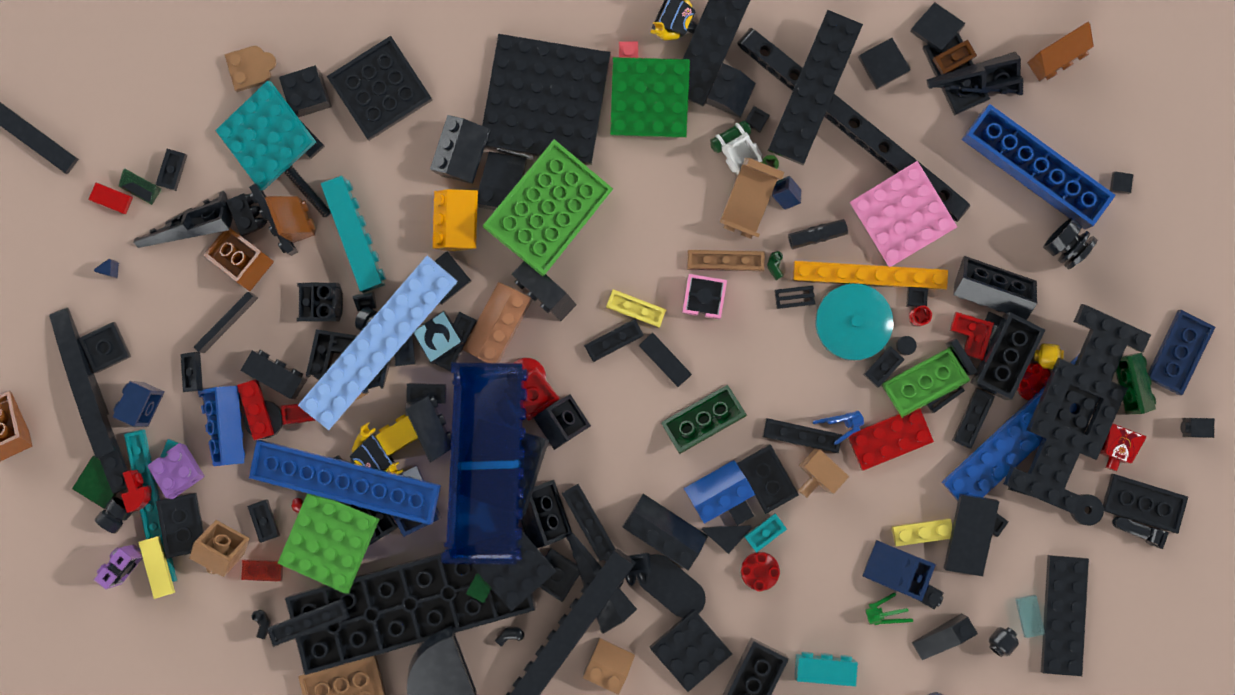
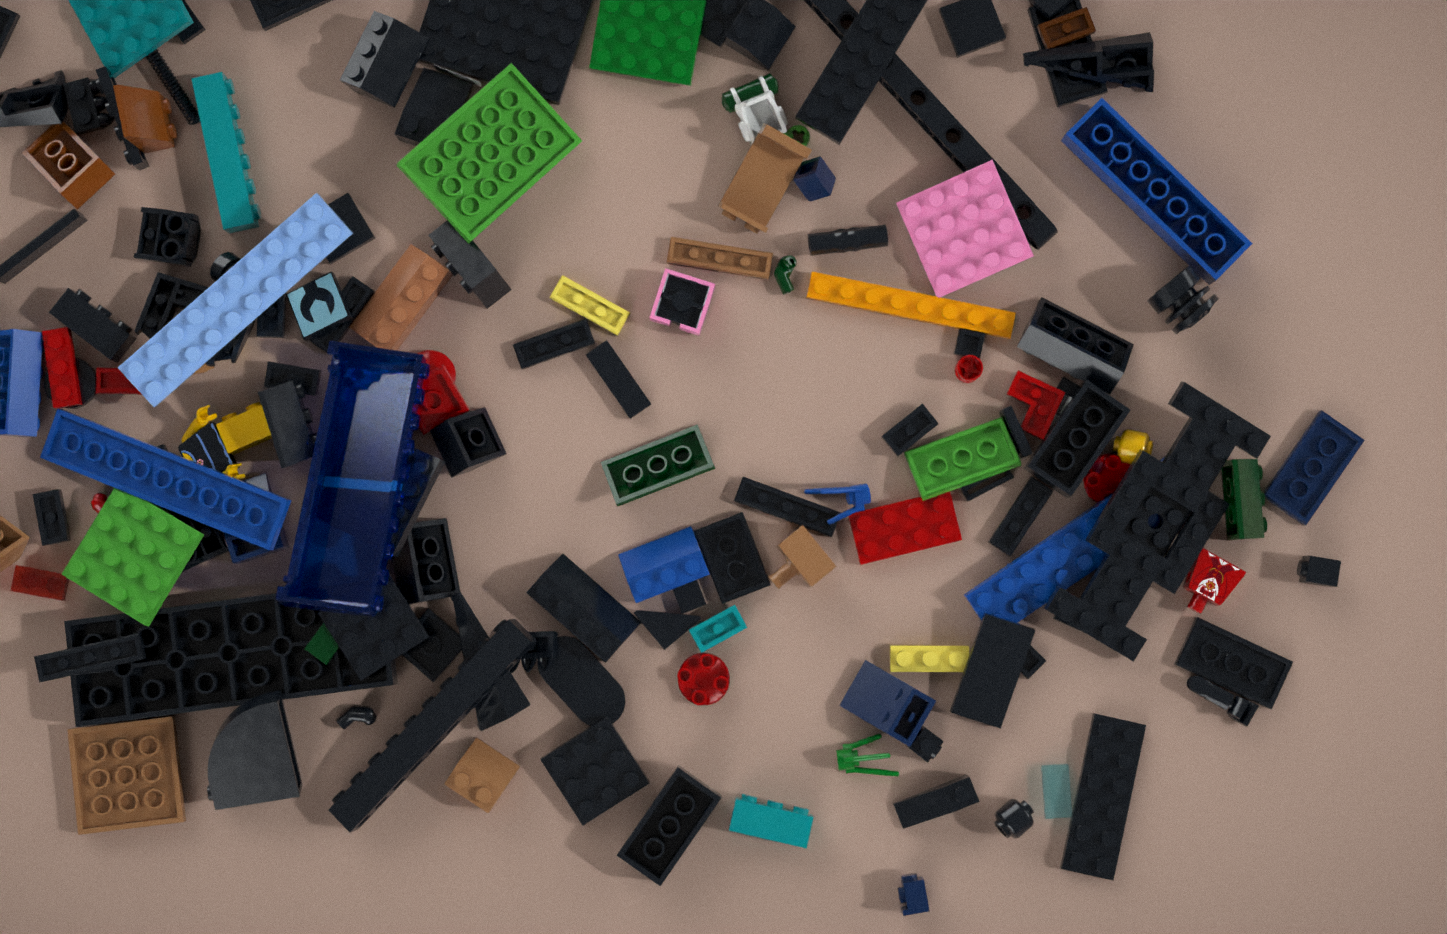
camera: 10 degrees right, 0 degrees up
(263, 622) = (31, 648): black arm -> none
(365, 300) = (228, 243): black slope -> none
(455, 219) = (363, 152): light orange slope -> none
(588, 521) = (483, 578): black plate -> none
(757, 119) = (790, 74): black tile -> none
(805, 288) = (805, 310): black tile -> none
(854, 322) = (879, 364): teal dish -> none
(906, 345) = (945, 406): black tile -> none
(1062, 53) = (1212, 42): dark orange slope -> none
(1095, 512) = (1165, 665): black piece -> none
(1121, 182) = (1268, 228): black tile -> none

